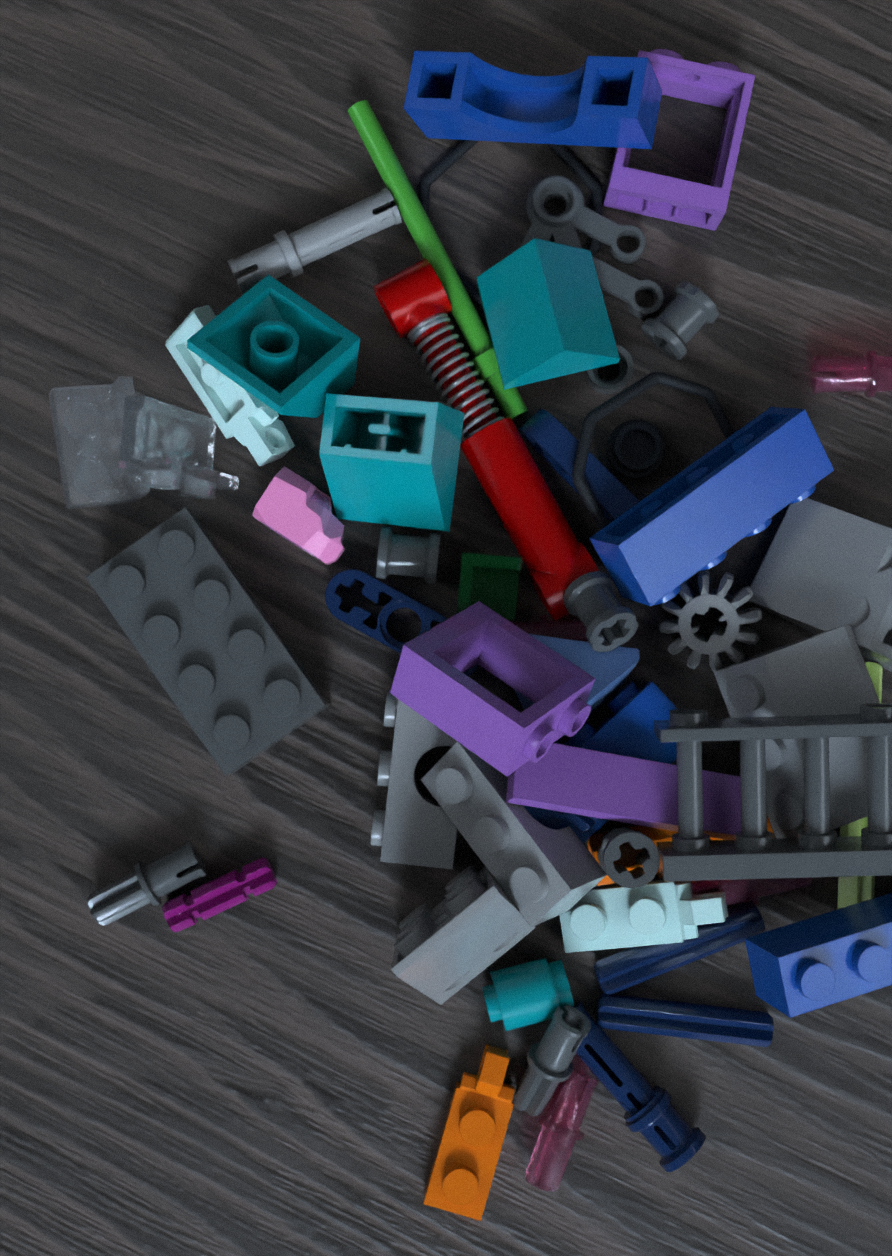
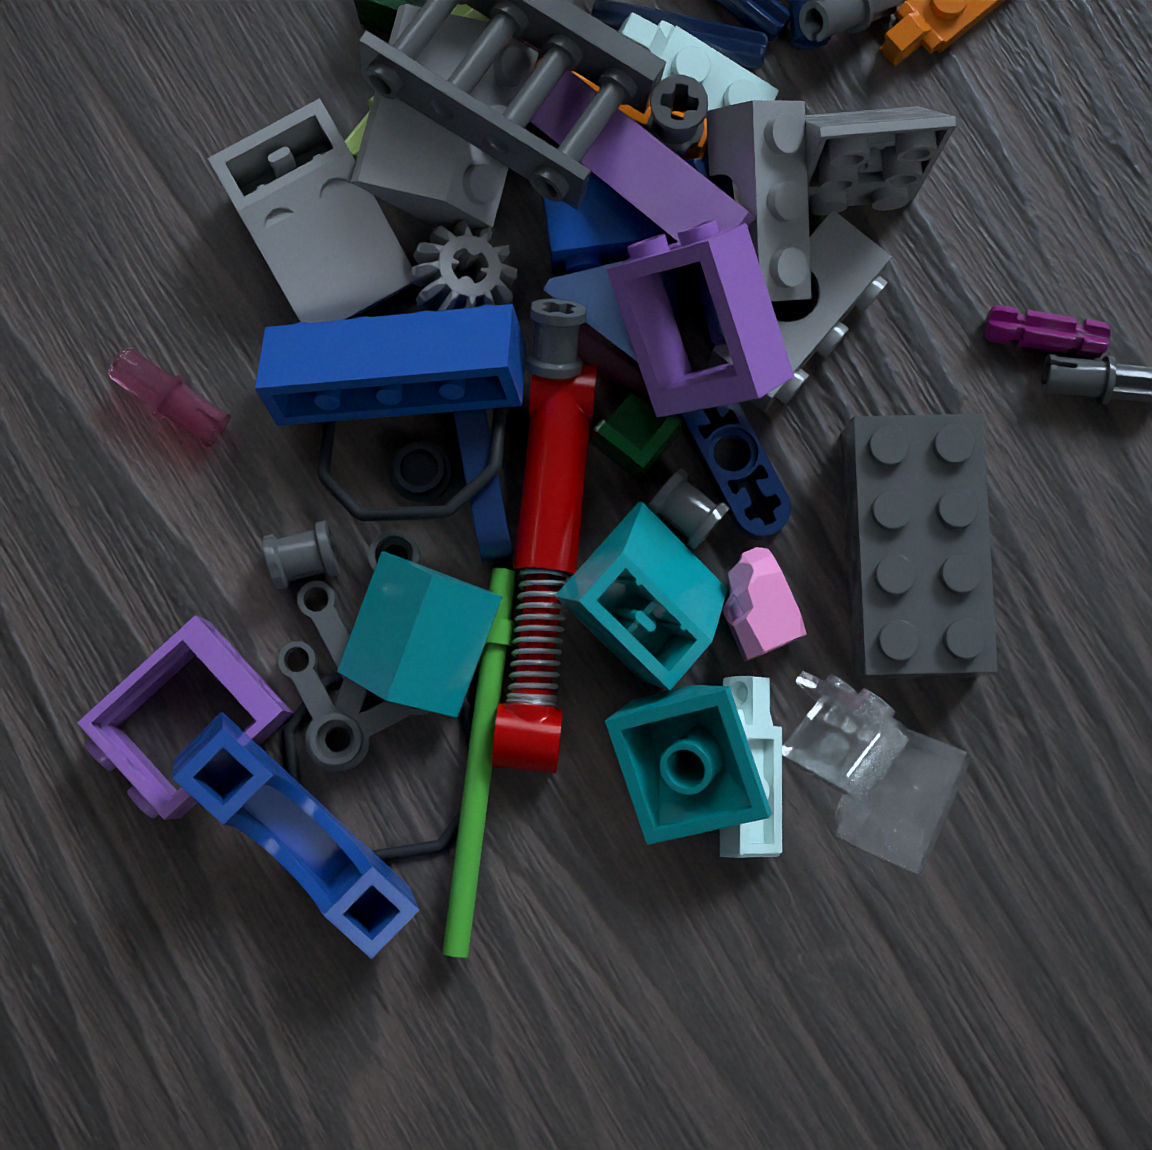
camera: 145 degrees left, 5 degrees down
(315, 240) = (581, 854): light grey pin -> none
(527, 993) = (833, 76): teal brick -> none

